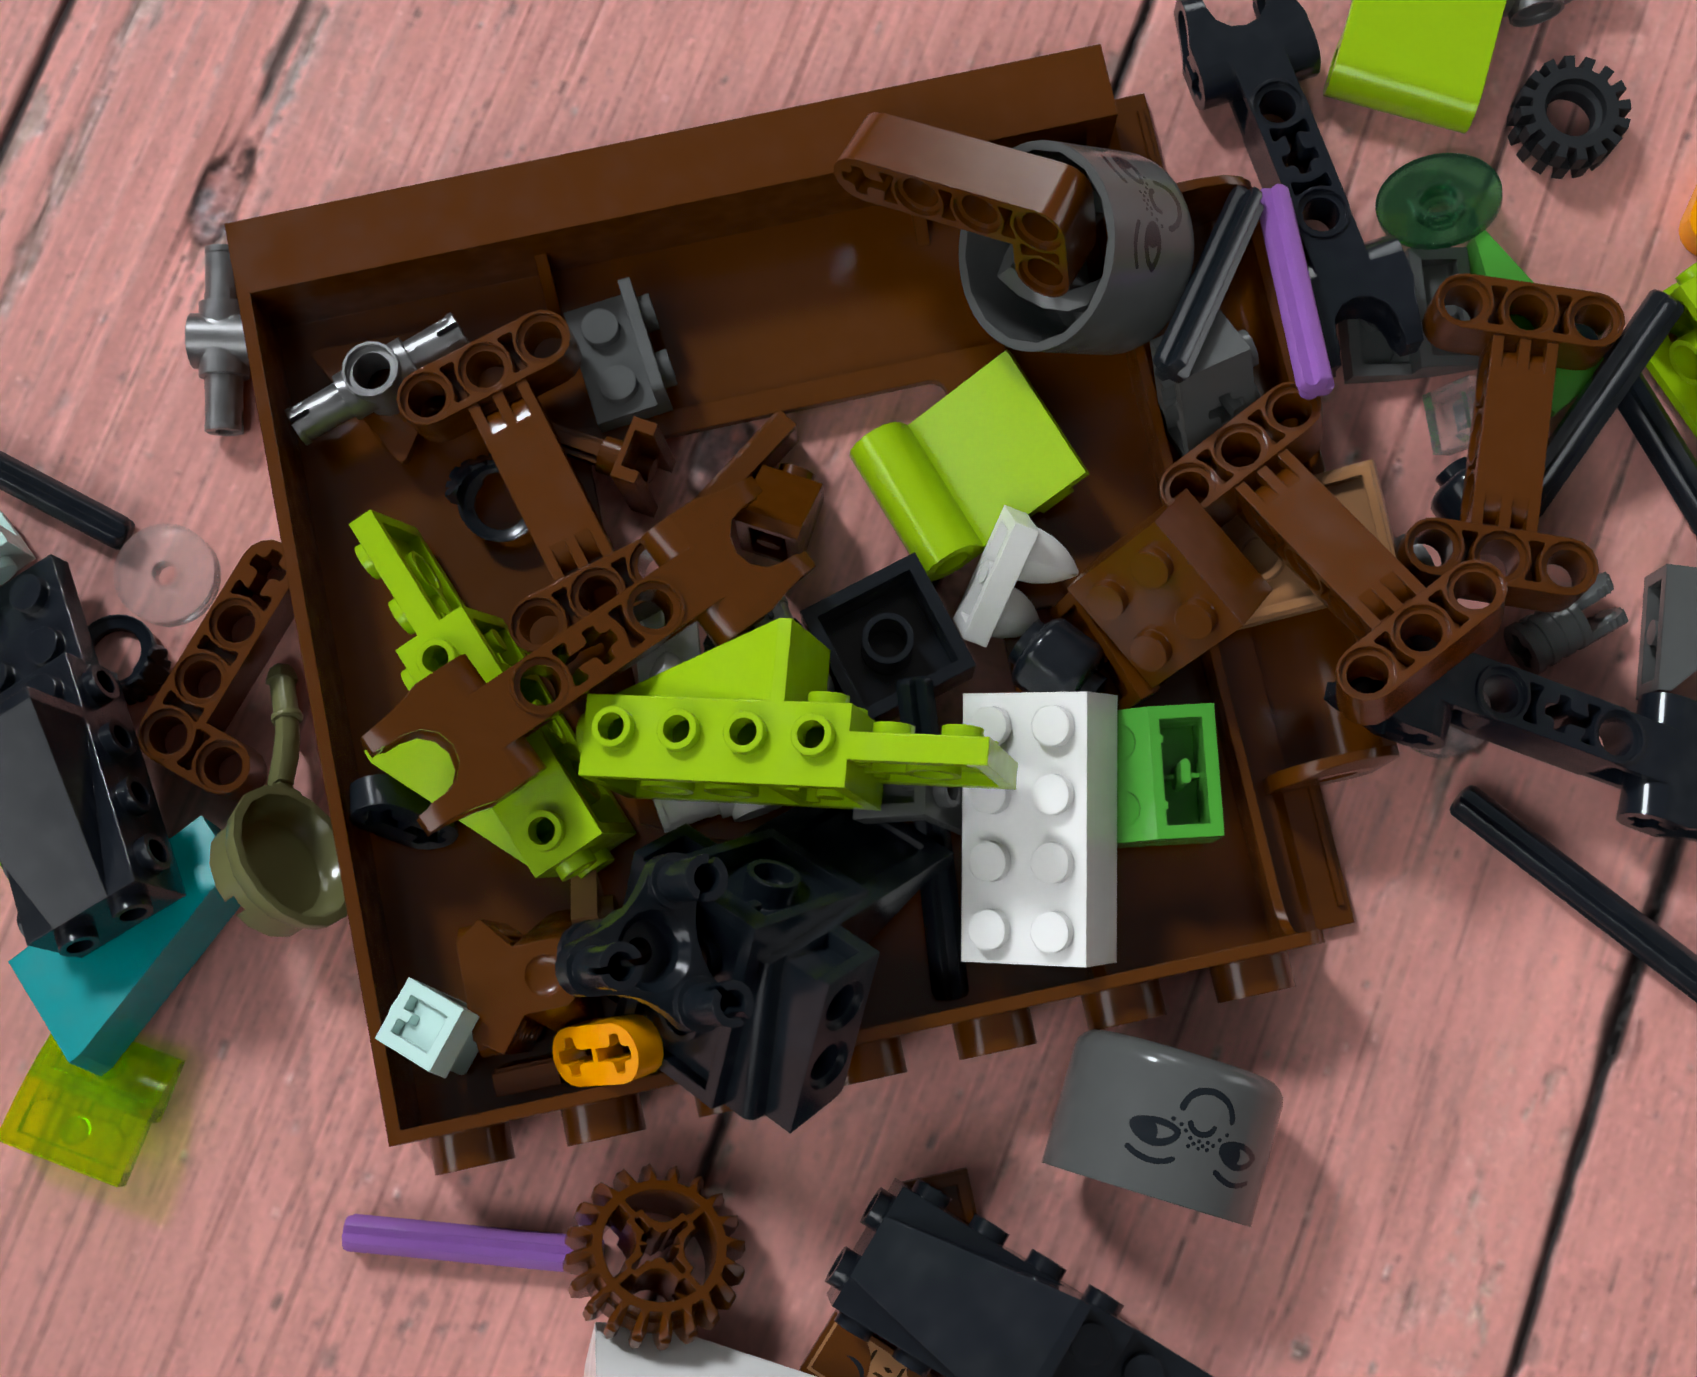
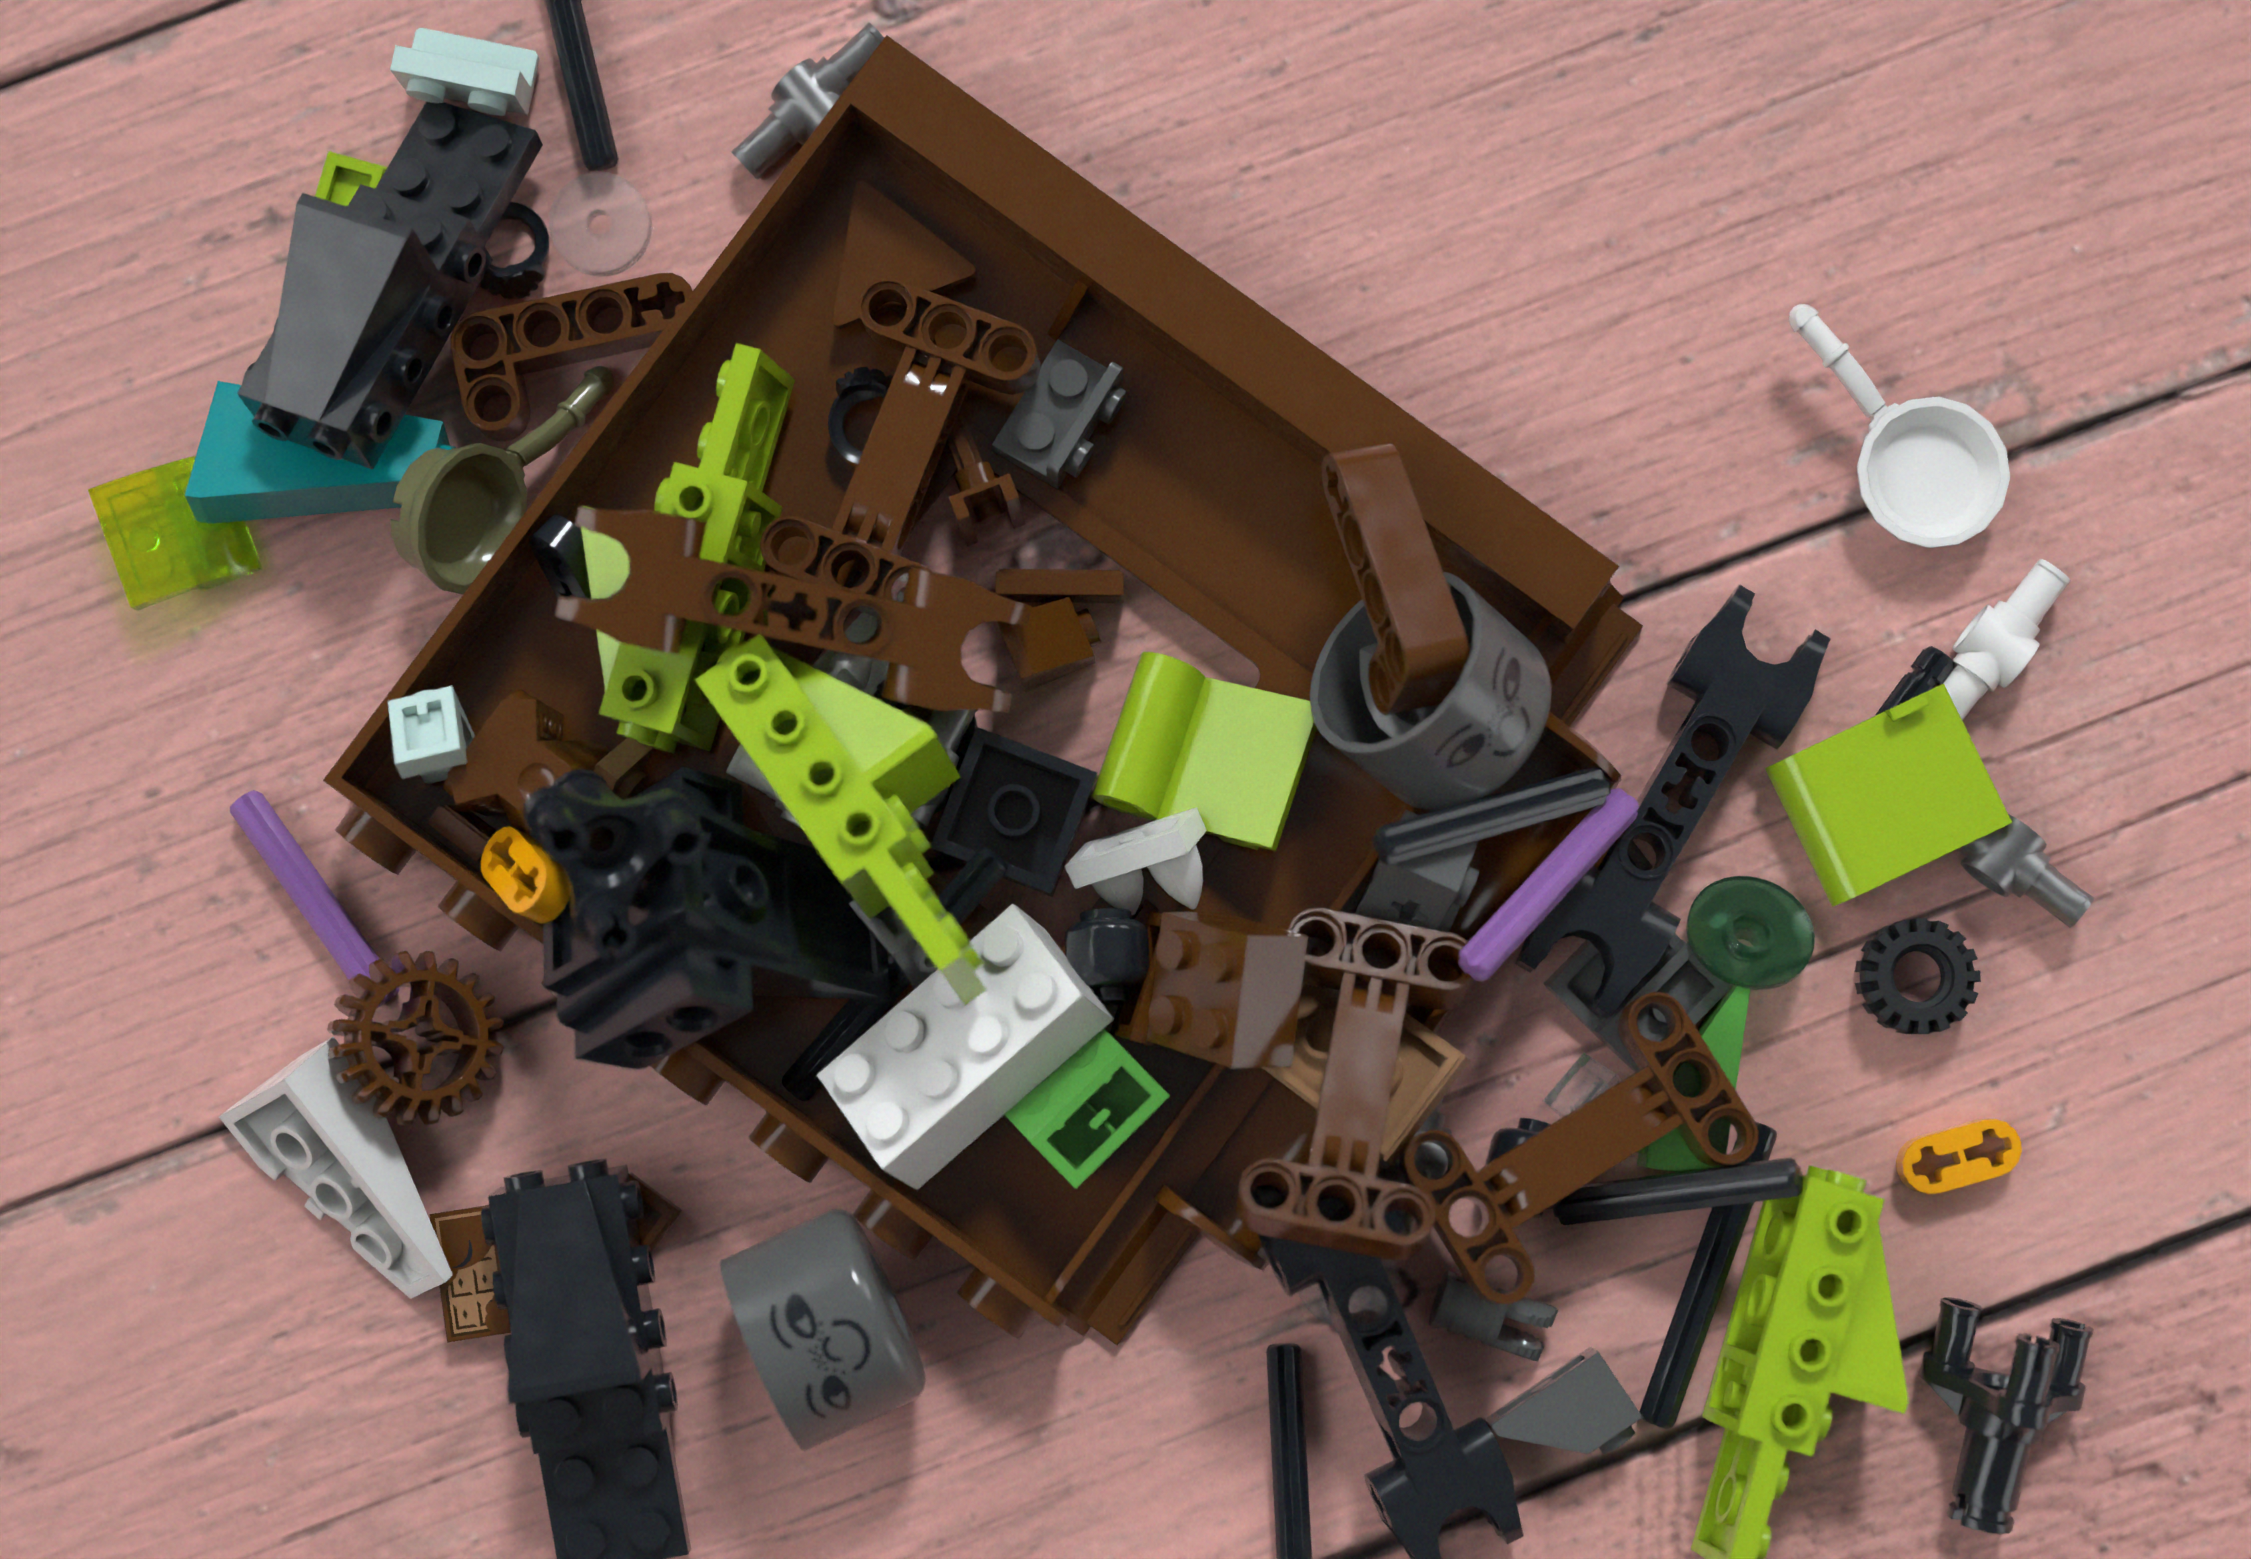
camera: 50 degrees right, 5 degrees up
(350, 393) = (847, 240): flat silver pin -> none

